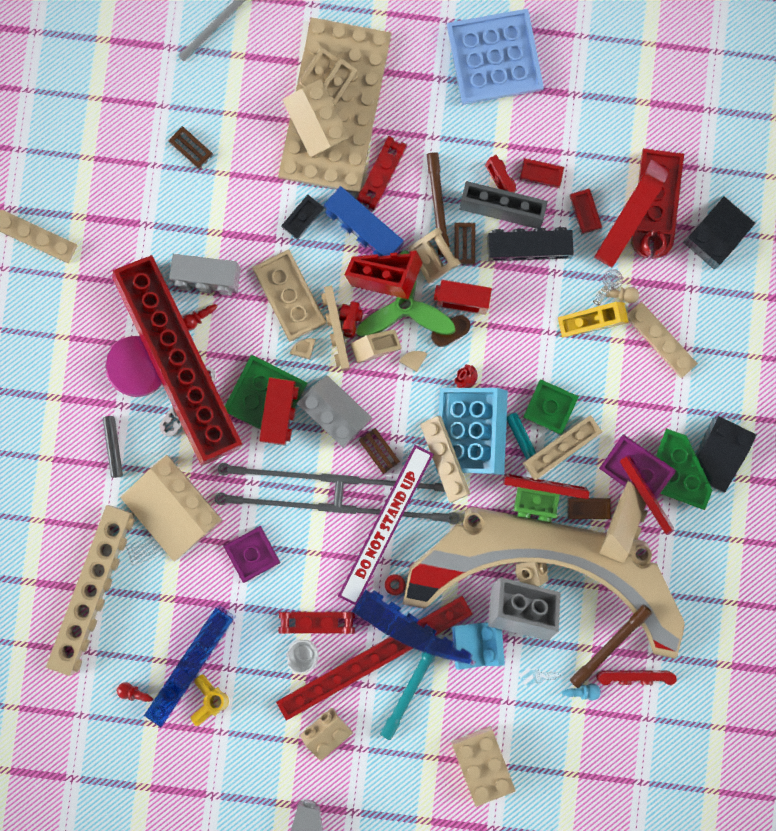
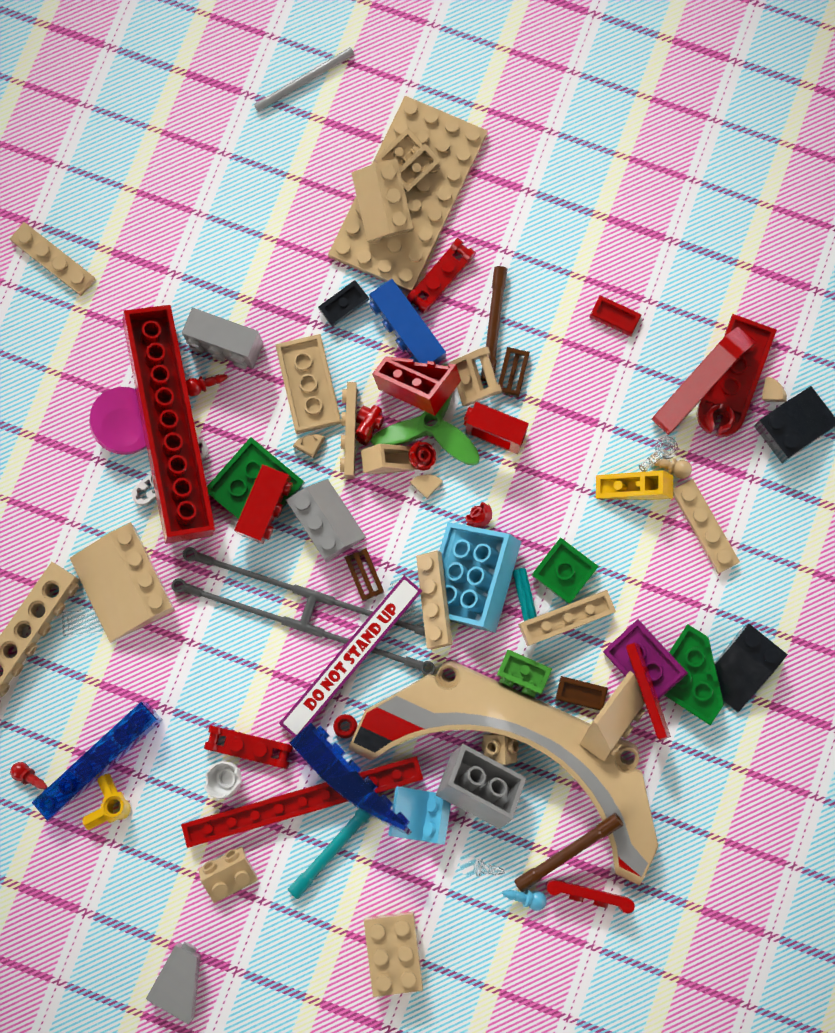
camera: 20 degrees right, 5 degrees down
(112, 446) = (76, 501): dark grey axle -> none
(203, 159) = (252, 218): reddish brown tile -> none
(252, 554) = (196, 654): magenta tile -> none
(409, 333) = (428, 453): none -> red plate
(462, 327) = (487, 463): reddish brown tile -> none
(495, 56) = (593, 180): light blue plate -> none
(499, 175) = (567, 303): red plate -> none
(503, 205) = (563, 339): dark grey brick -> none
(530, 244) = (583, 389): black brick -> none
(546, 486) = (539, 656): red tile -> none
(585, 211) = (654, 367): red tile -> none
(693, 208) = (773, 391): none -> tan tile

